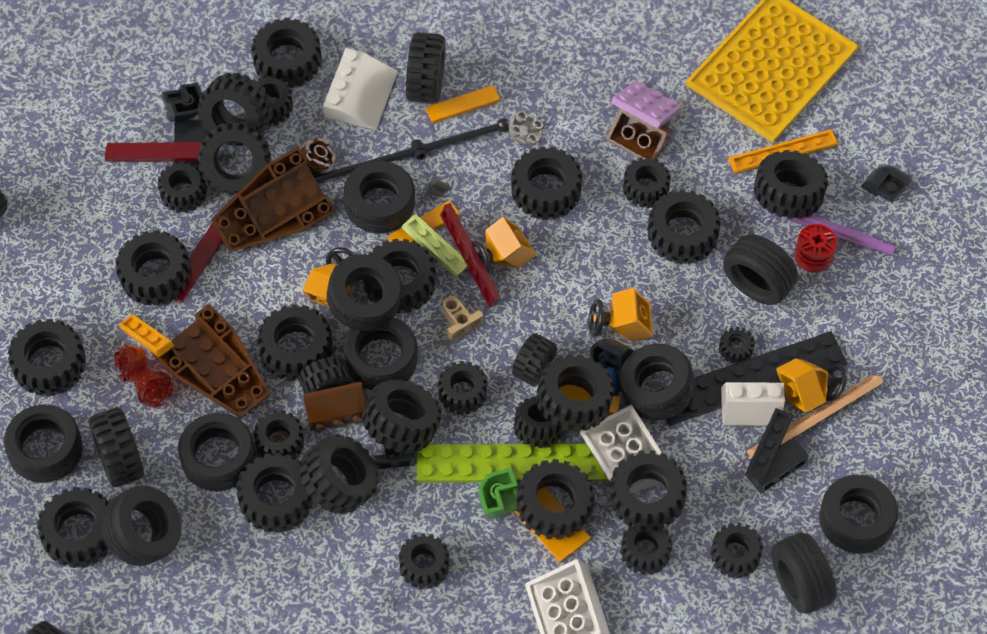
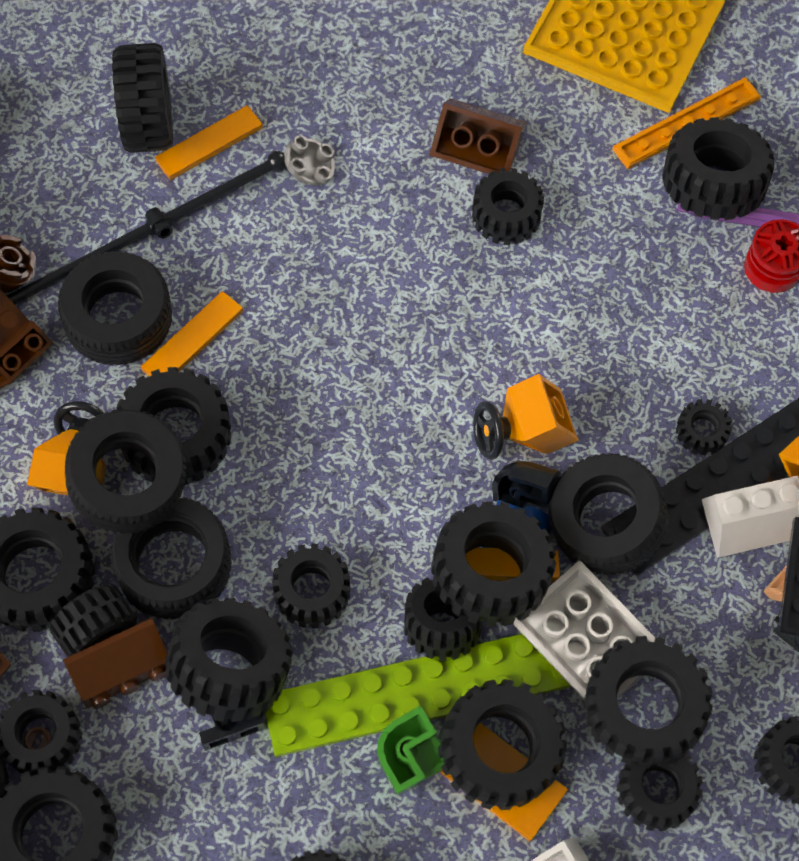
camera: 15 degrees left, 5 degrees up
(324, 484) = (122, 804): black tyre -> none
(359, 90) = (50, 150): white slope -> none
(435, 244) = (218, 366): yellowish green plate -> none
(438, 187) = (201, 275): dark grey plate -> none
(460, 314) = (278, 467): tan tile -> none
(470, 255) = (274, 372): dark red tile -> none
(504, 245) = (322, 346): light orange piece -> none
(533, 358) = (412, 518): black tyre -> none
(546, 202) = (361, 204): black tyre -> none
(646, 104) = (478, 90): lavender plate -> none
(678, 246) = (571, 292): black tyre -> none
(760, 269) = (715, 305): black tyre -> none

